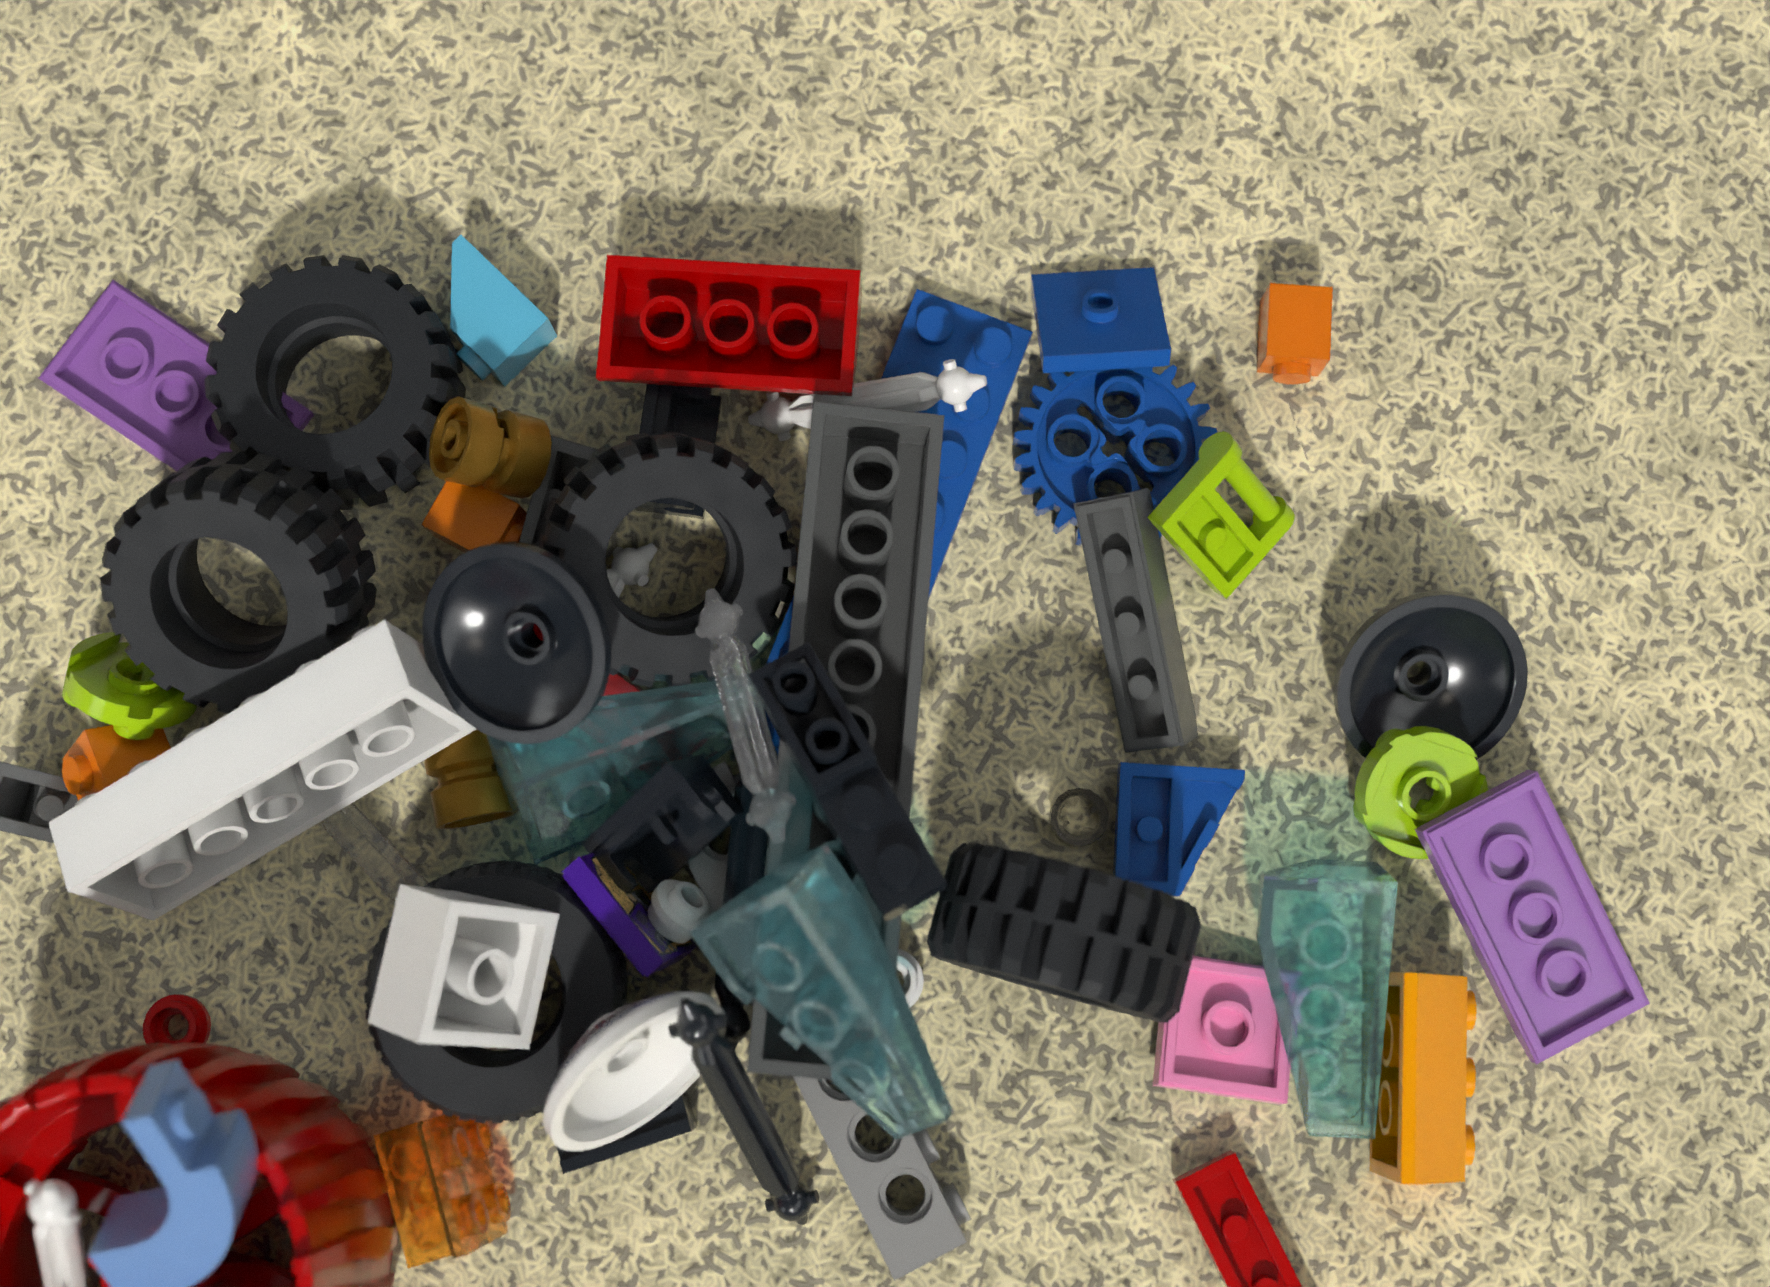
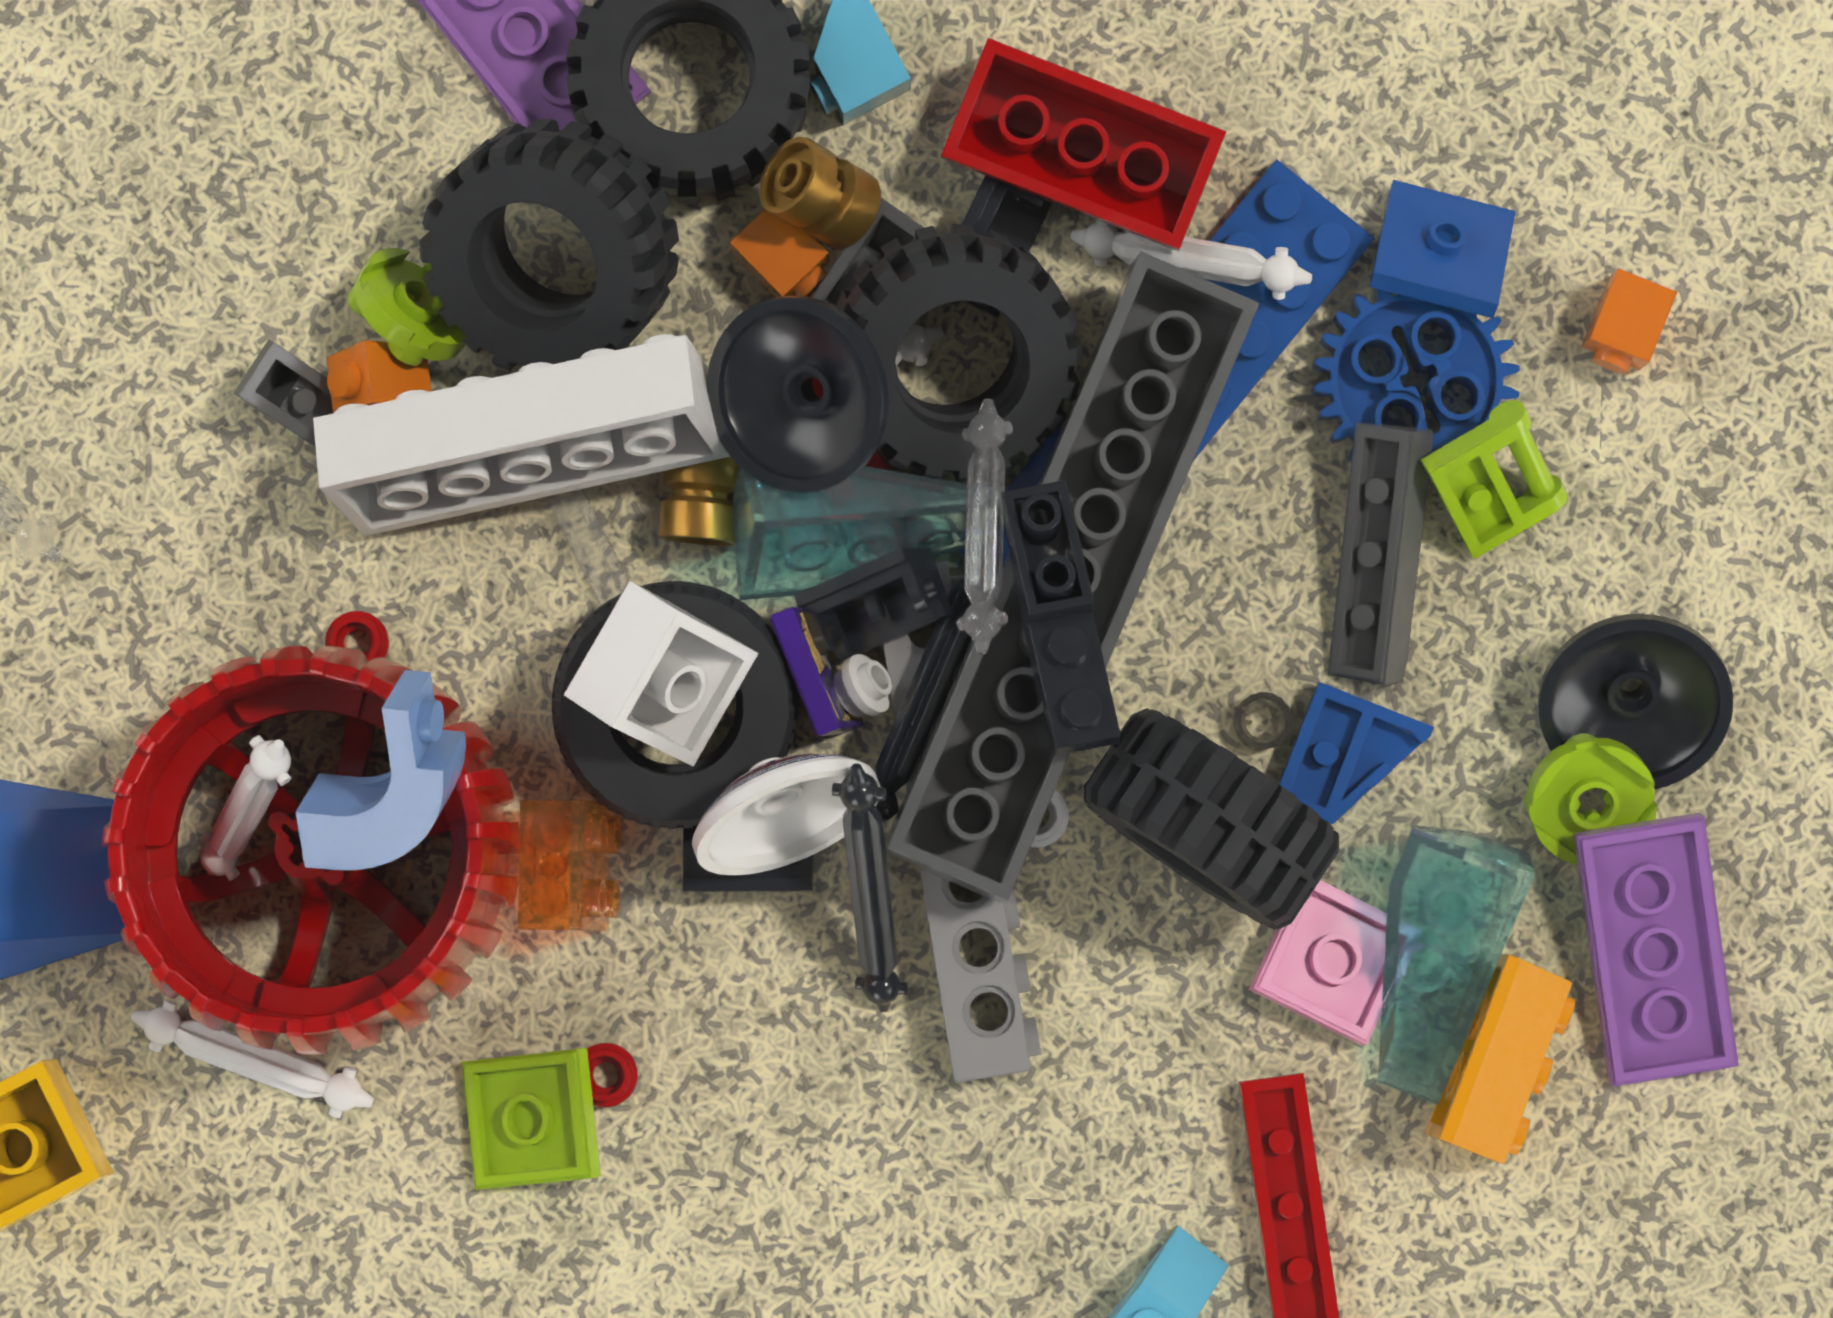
camera: 15 degrees right, 5 degrees up
(820, 967) = (983, 777): clear light blue wedge -> none

